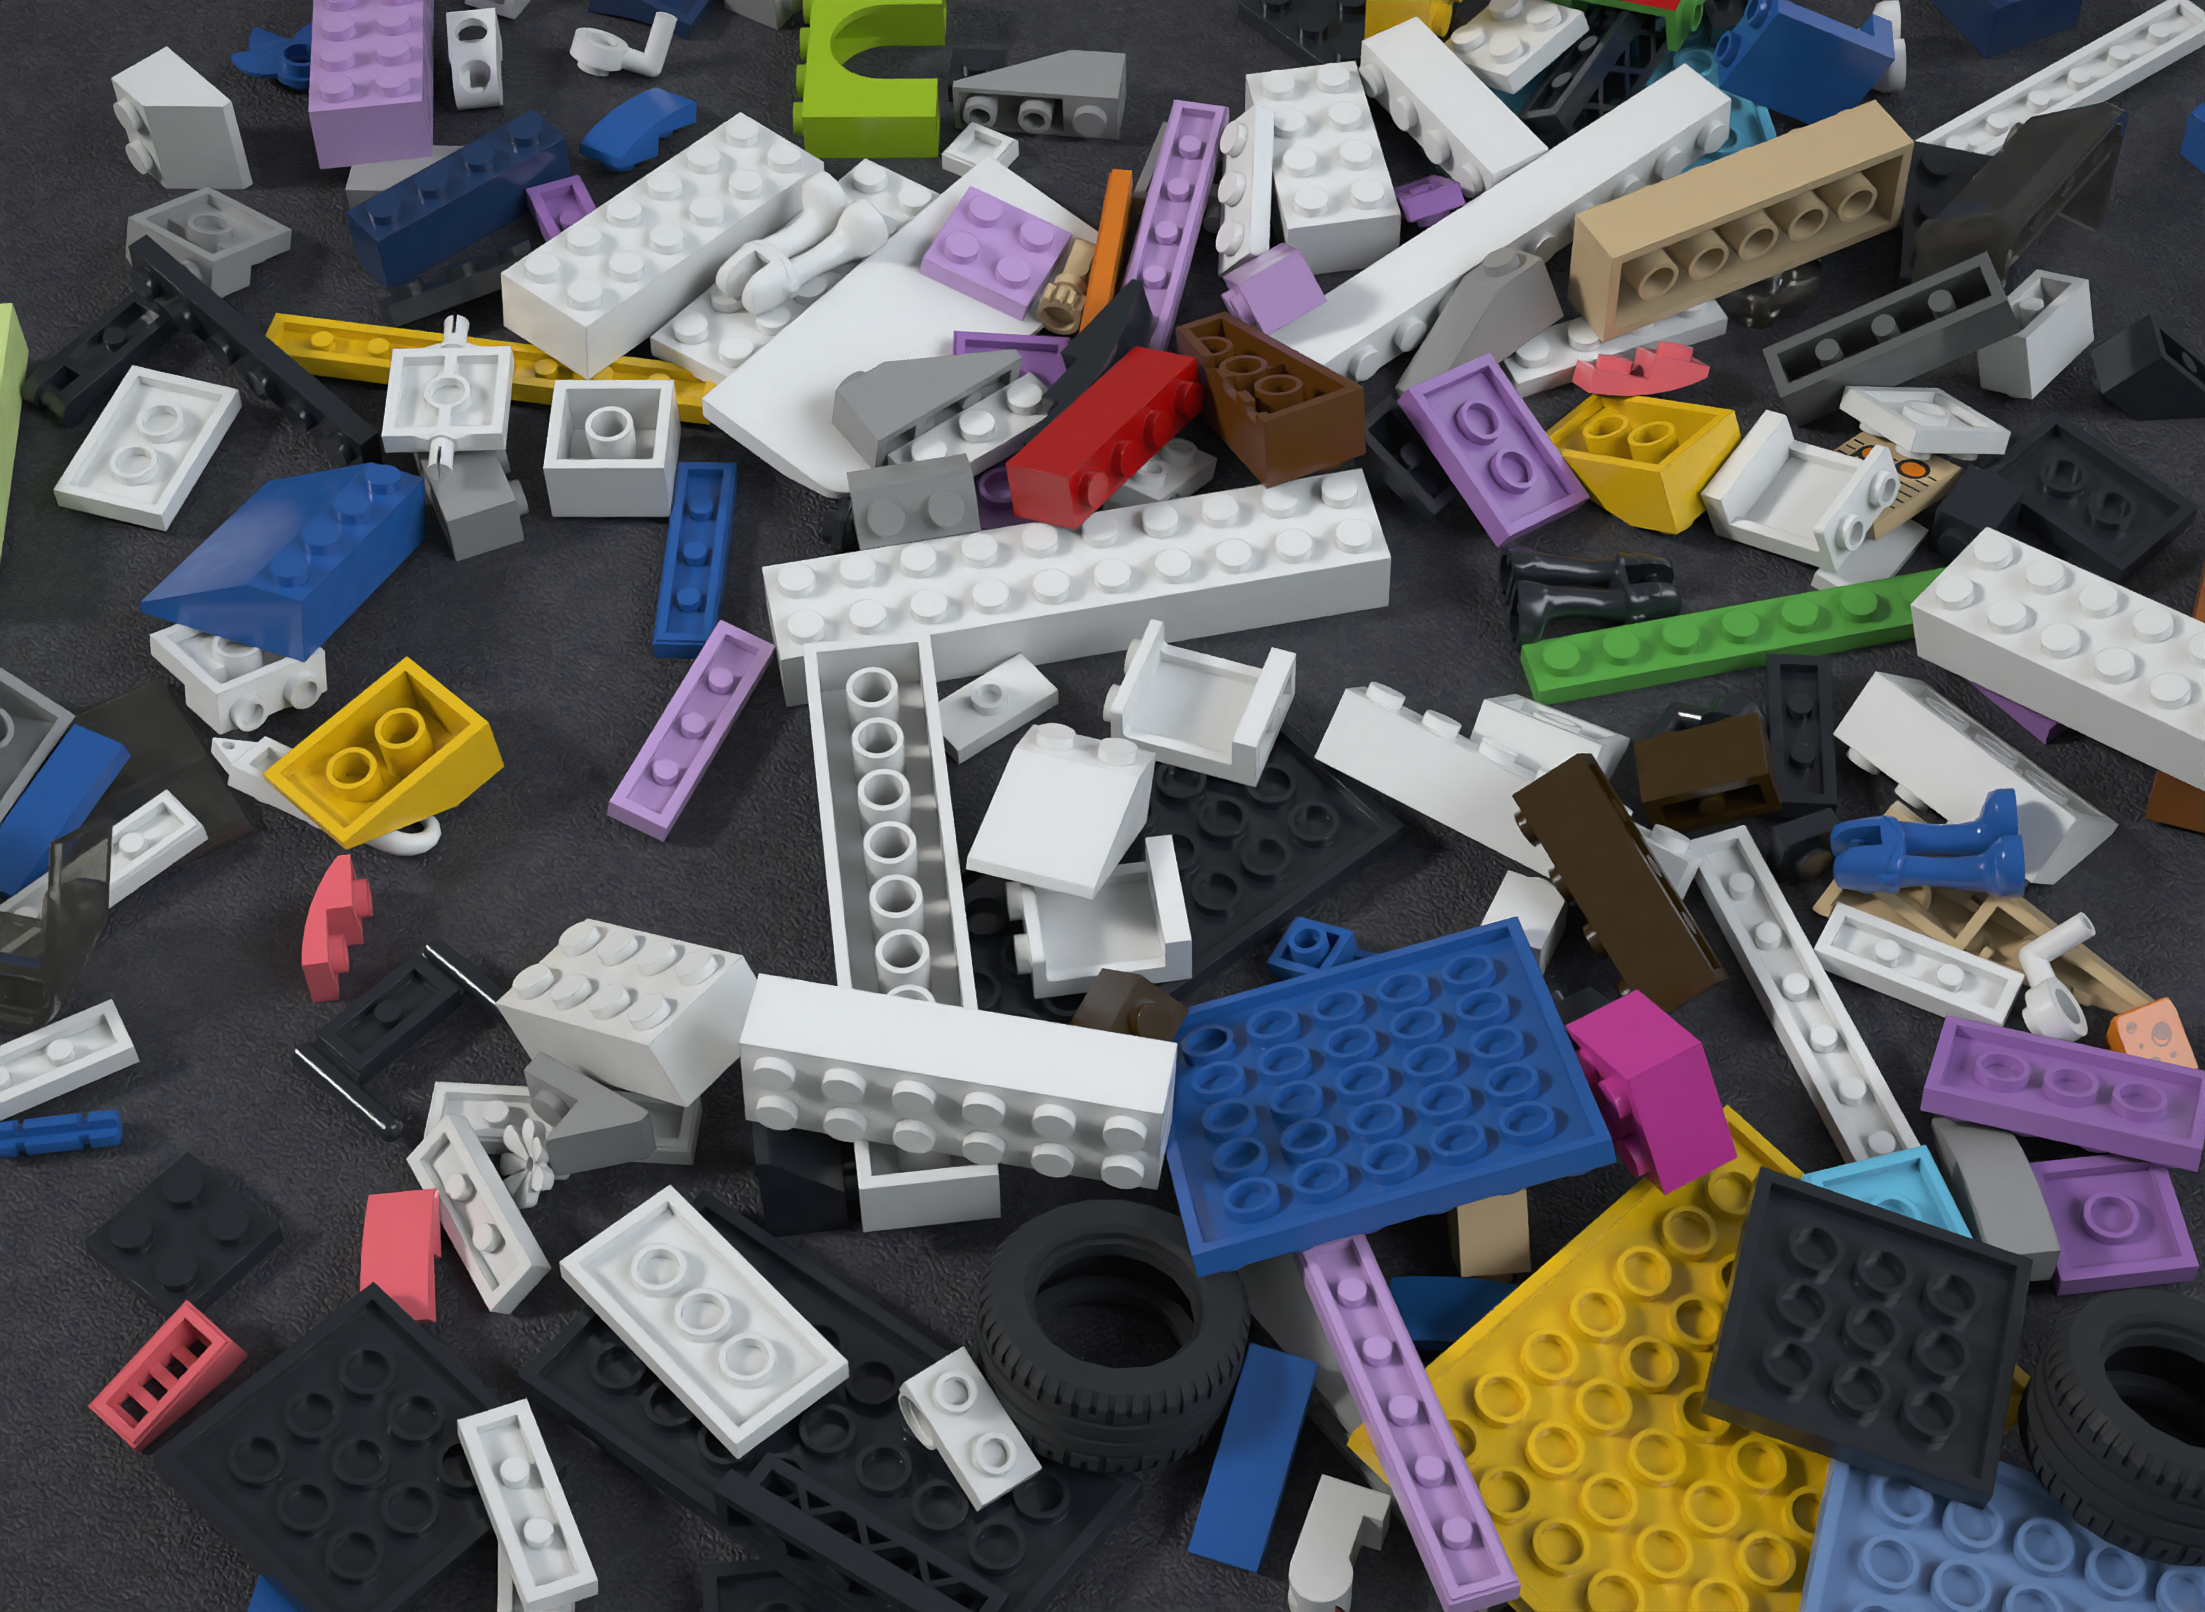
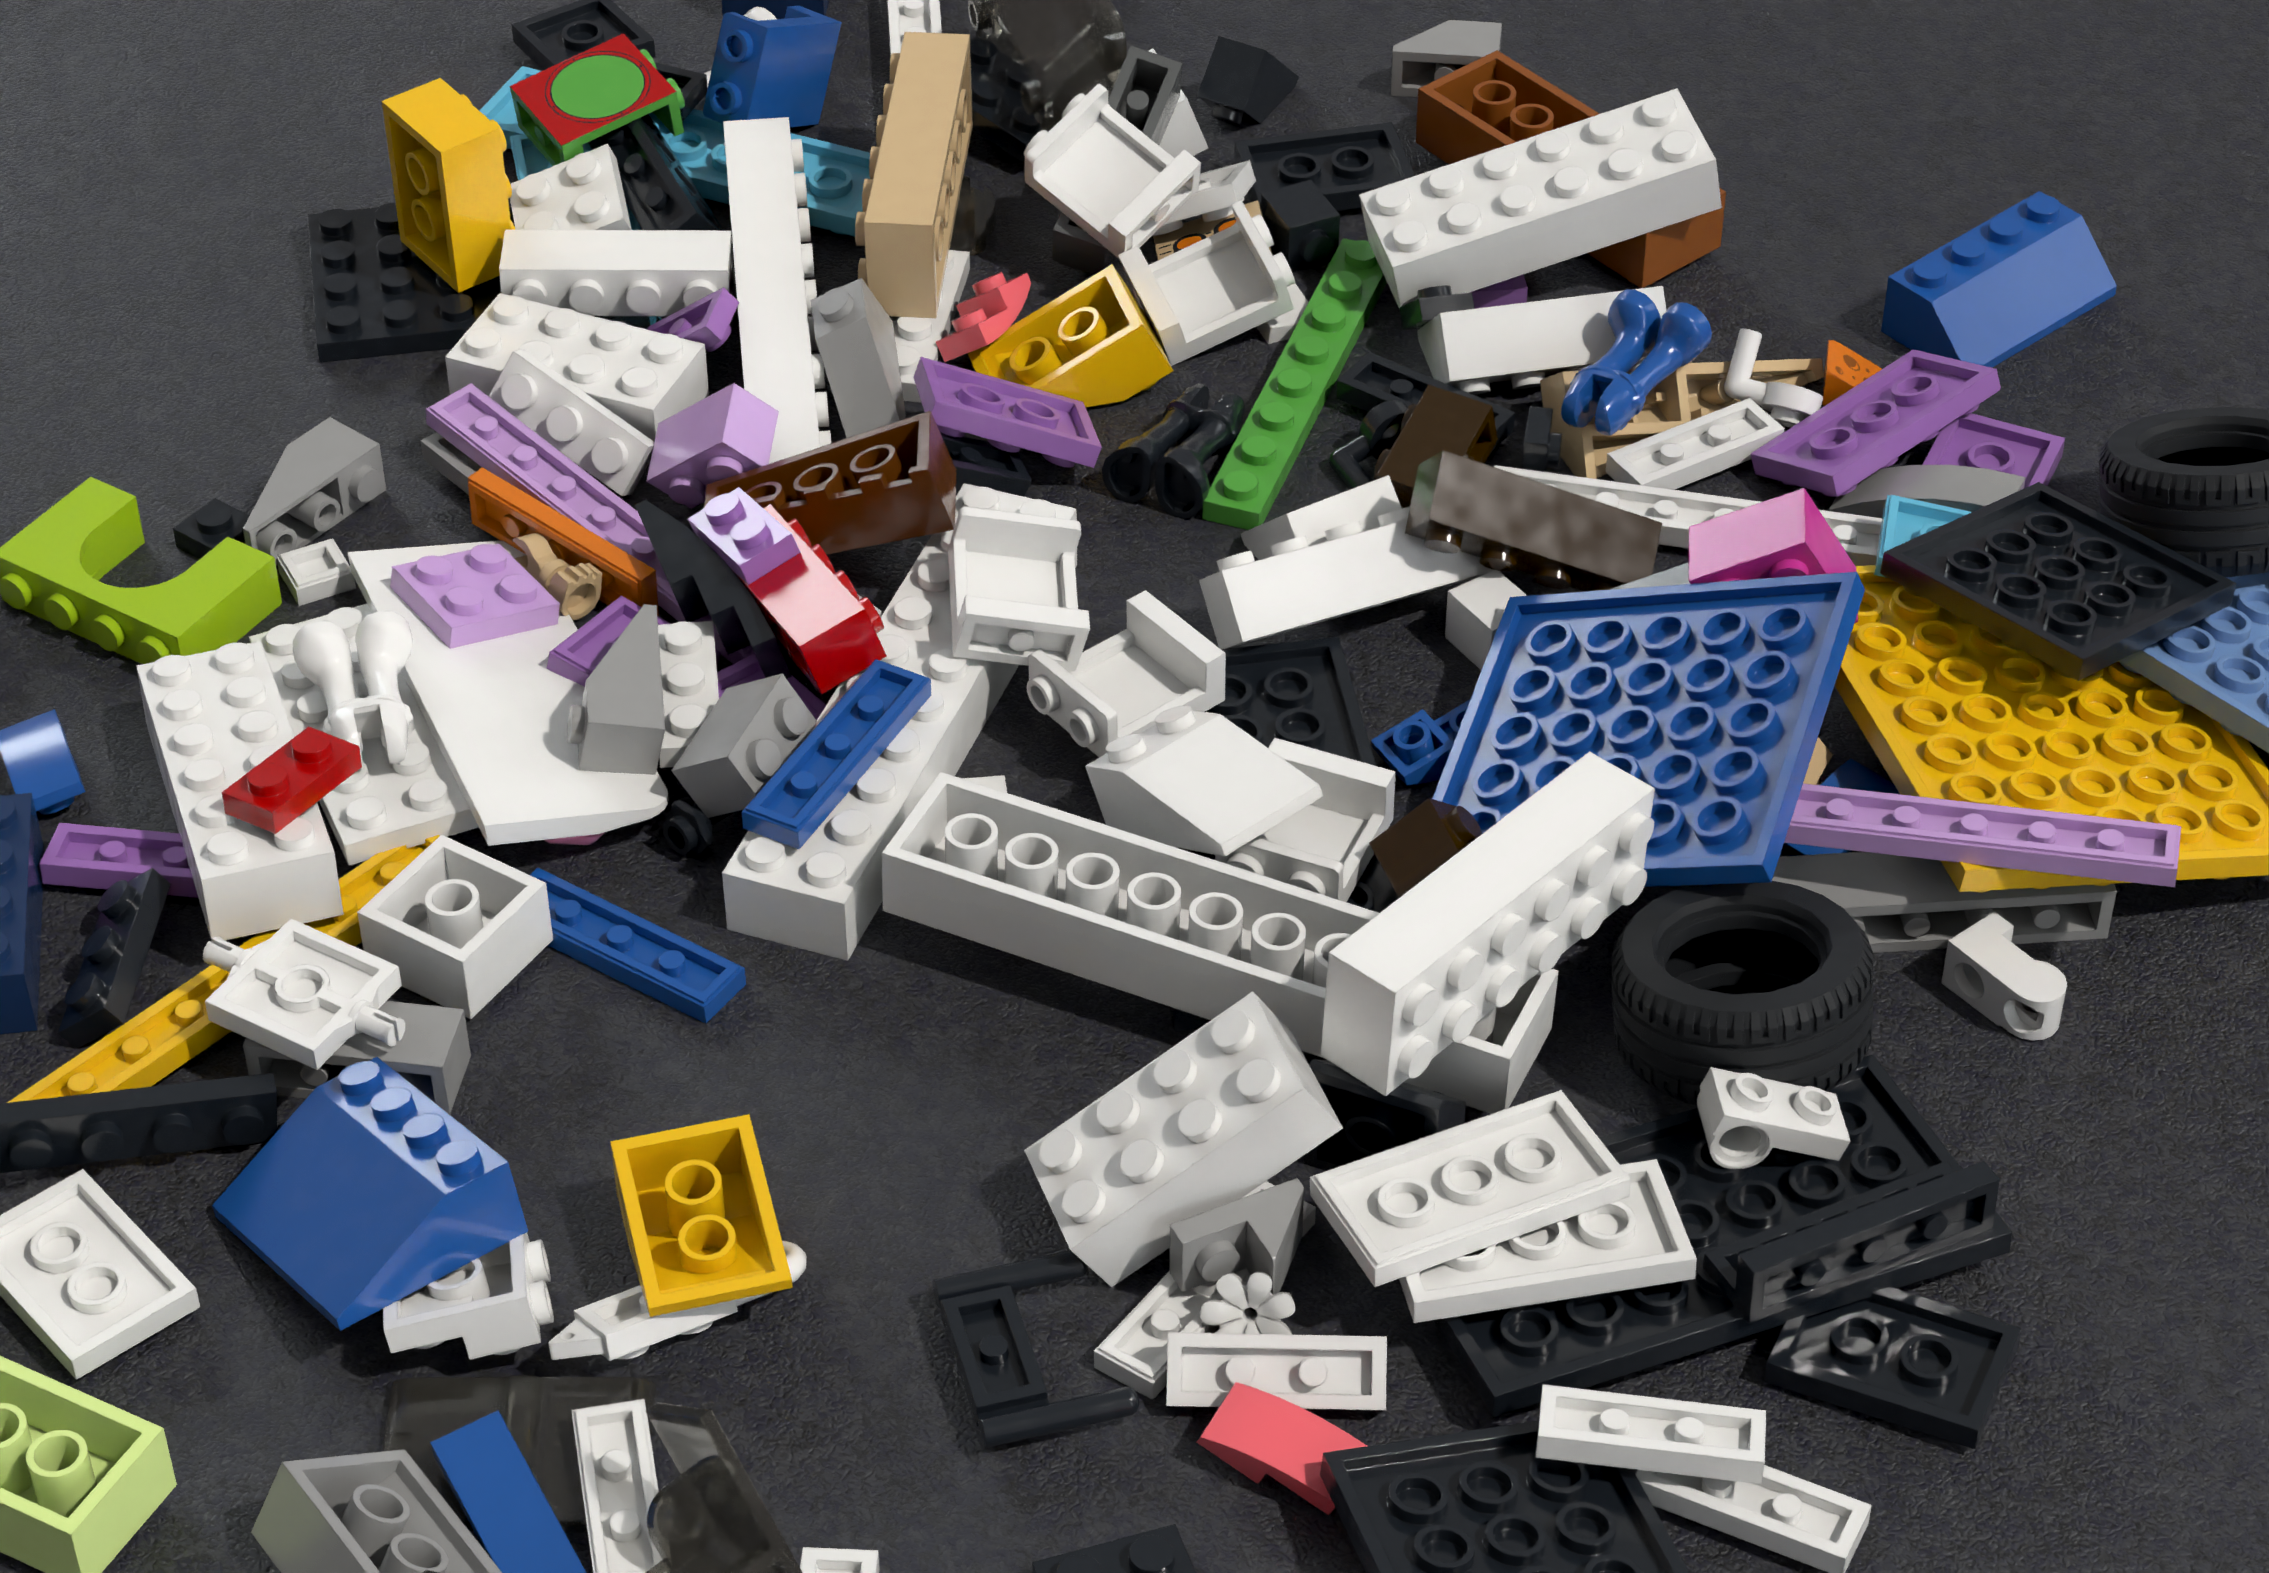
camera: 60 degrees left, 10 degrees down
(333, 925) = (837, 1344): coral slope -> none
(633, 259) = (291, 780): none -> red plate
(691, 731) = (838, 1018): lavender plate -> none
(715, 1238) = (1468, 1187): none -> white tile
(933, 560) = (836, 754): none -> blue tile
(1133, 360) = (744, 535): none -> medium lavender plate
(1217, 568) = (1015, 588): none -> white panel
(1254, 1458) = (1913, 986): blue tile -> none
(1837, 338) = (1108, 173): none -> white panel
(1926, 672) = (1432, 302): none -> black plate

